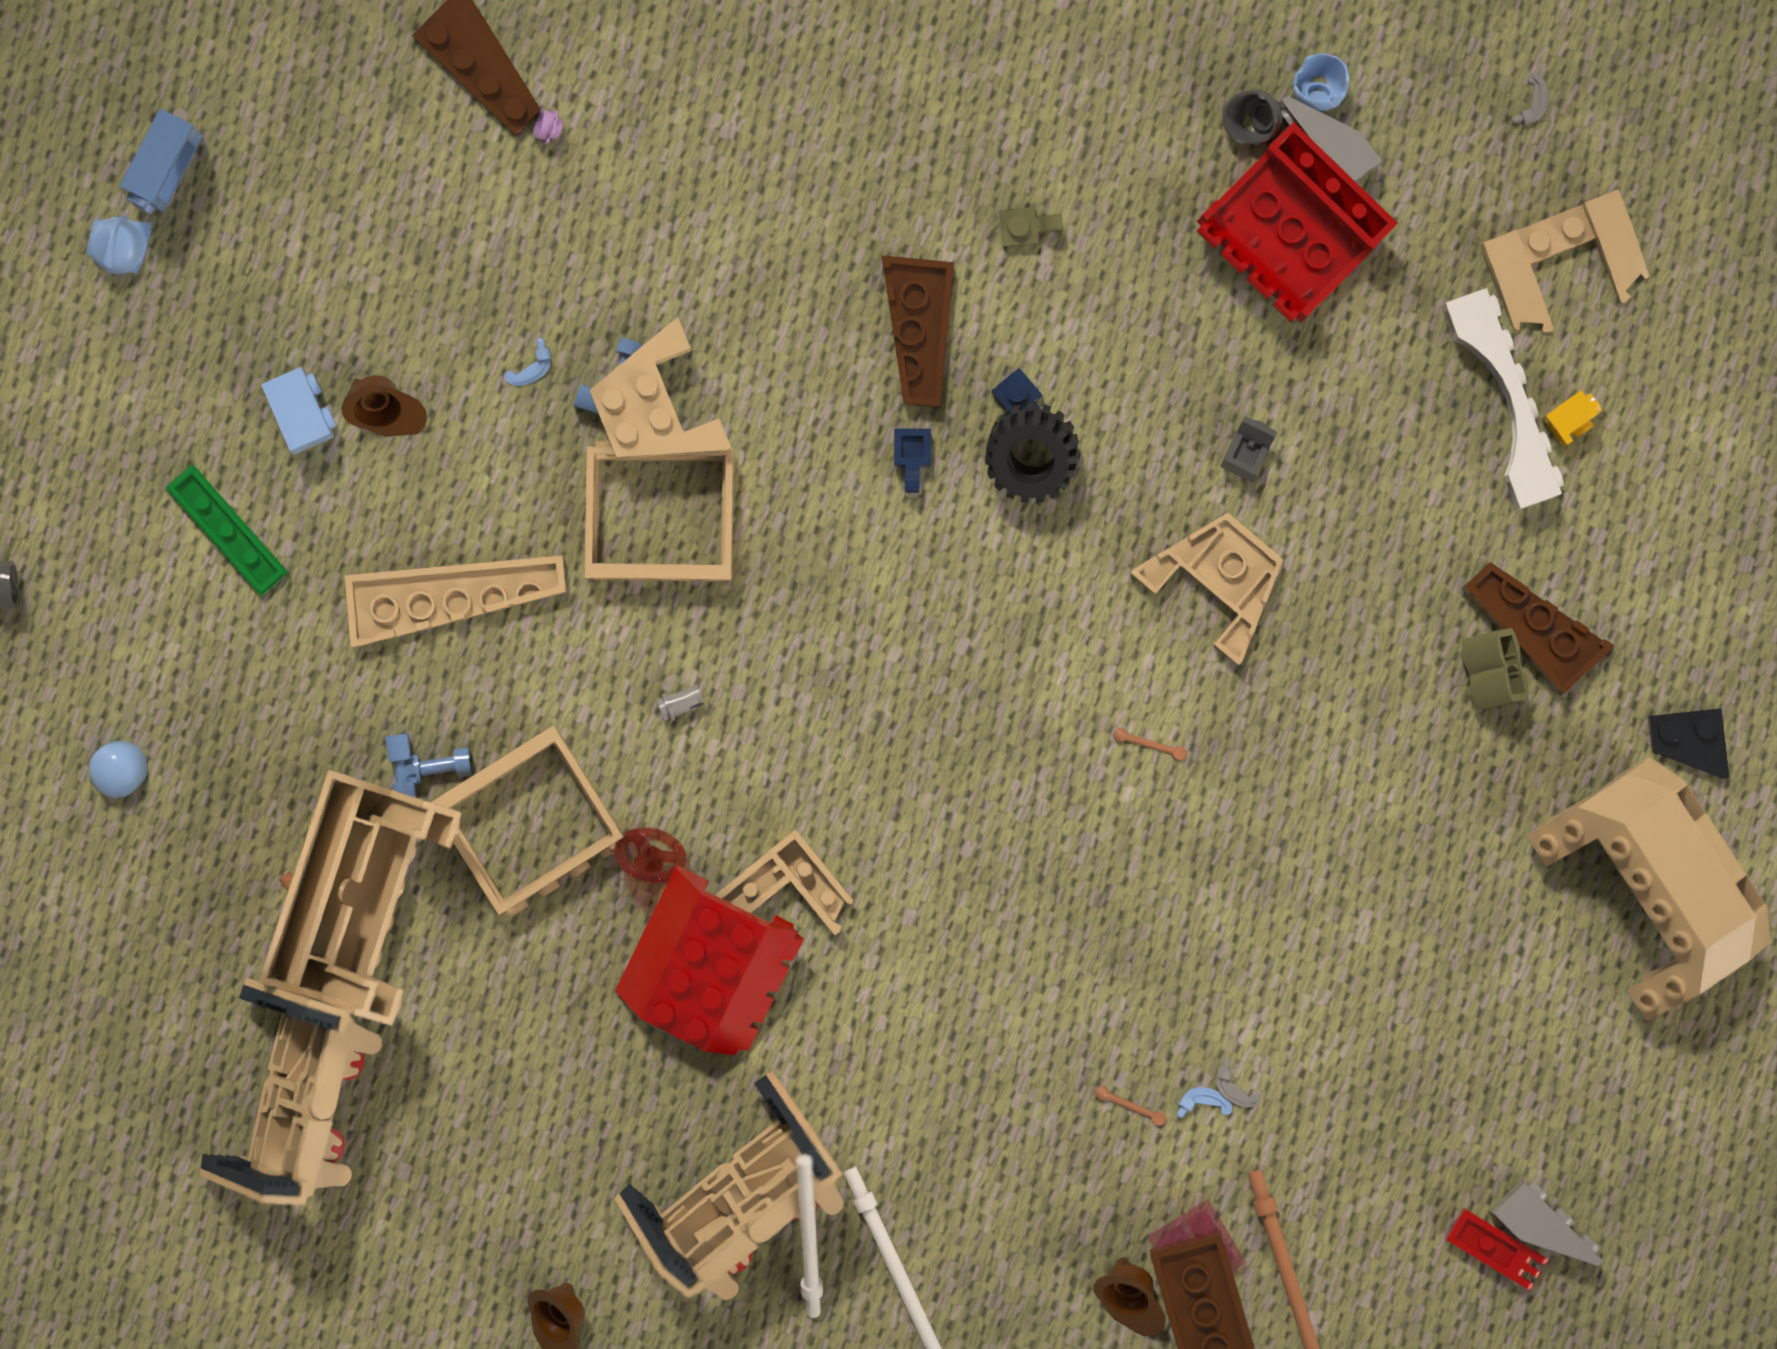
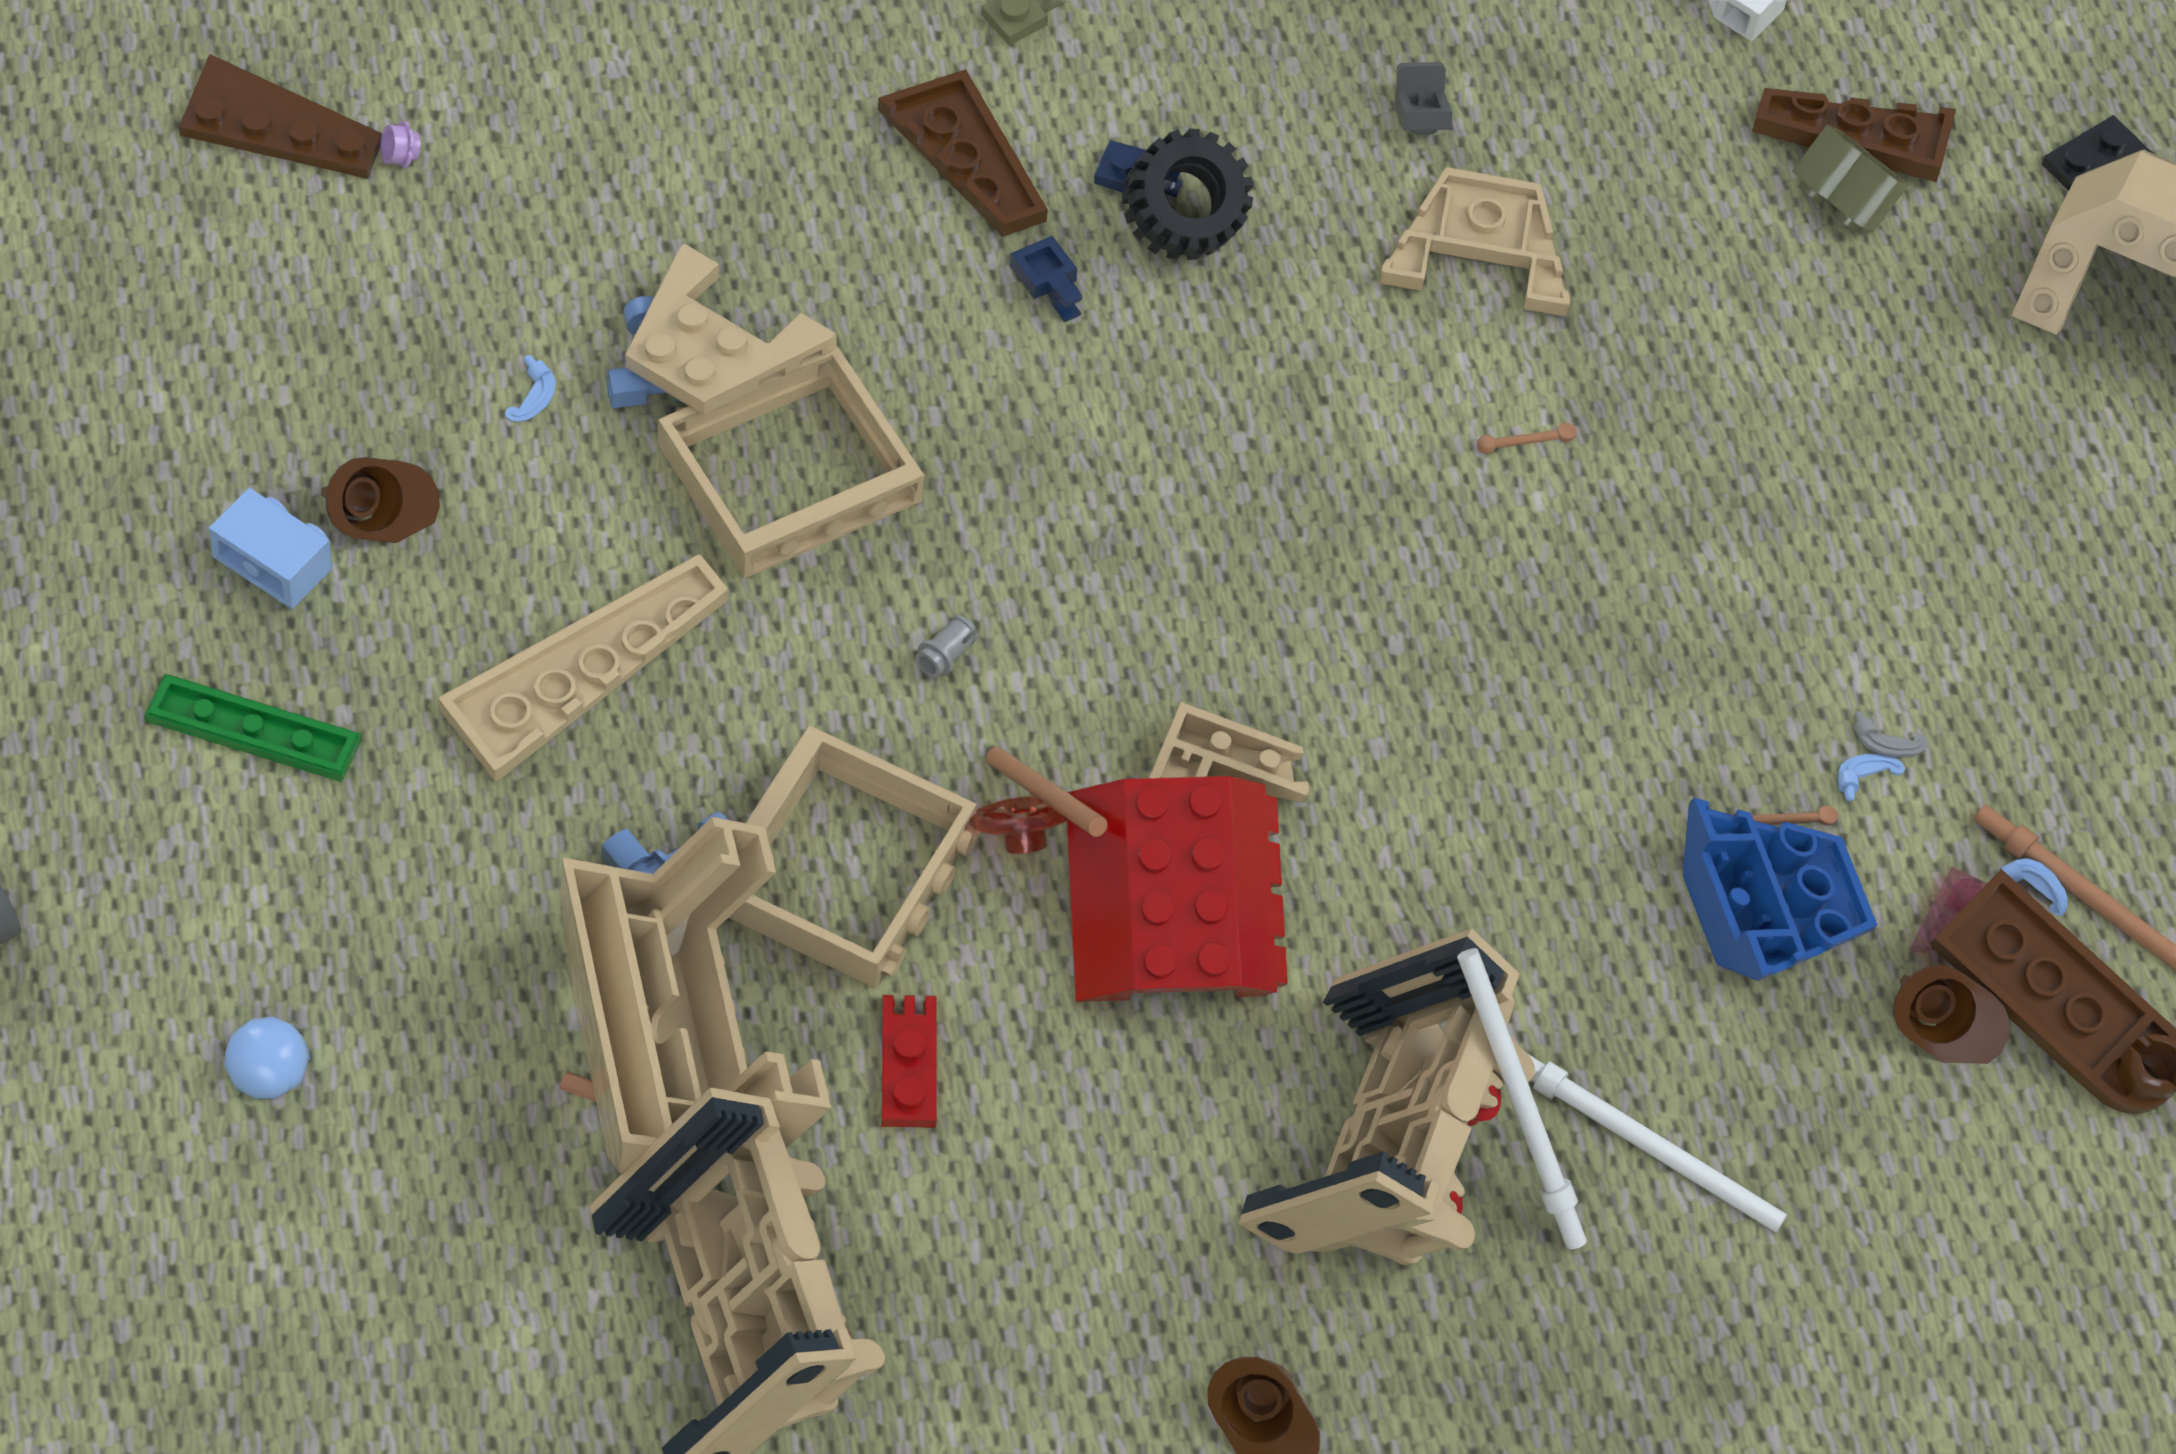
camera: 40 degrees left, 30 degrees down
(490, 977) = (909, 1064): none -> red hinge
(666, 857) = (1046, 791): none -> nougat bar
(1080, 1161) = (1770, 890): none -> blue wedge
(1258, 1235) = (2041, 879): none -> light blue piece

